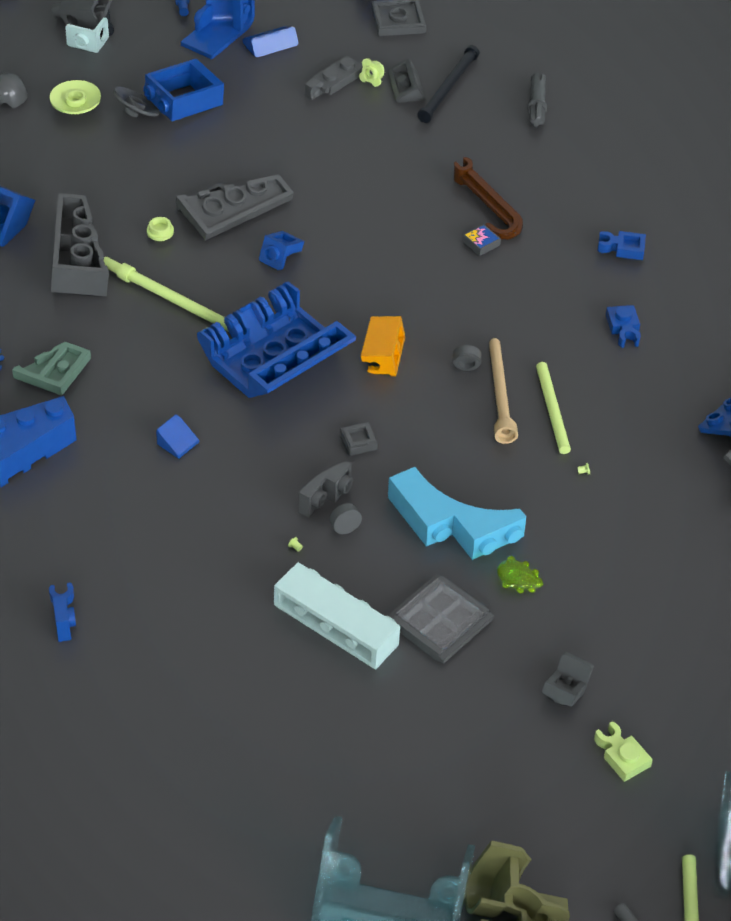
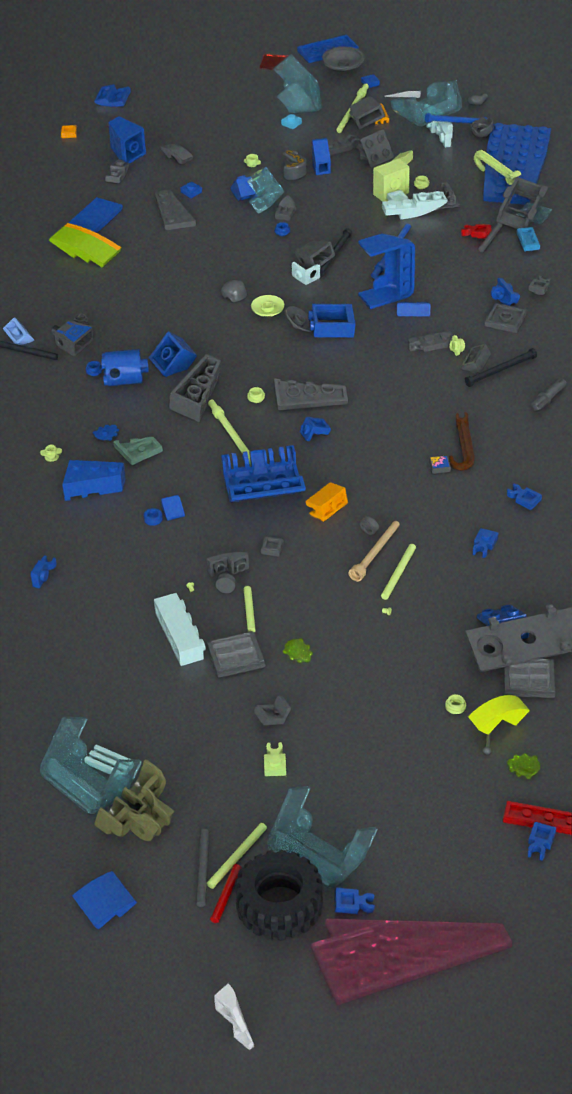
camera: 35 degrees right, 5 degrees down
(156, 461) = (153, 516): none -> blue tile
(397, 861) = (105, 755): none -> light aqua tile
(404, 544) = (249, 609): none -> yellowish green bar
(438, 516) = (279, 603): medium azure arch -> none

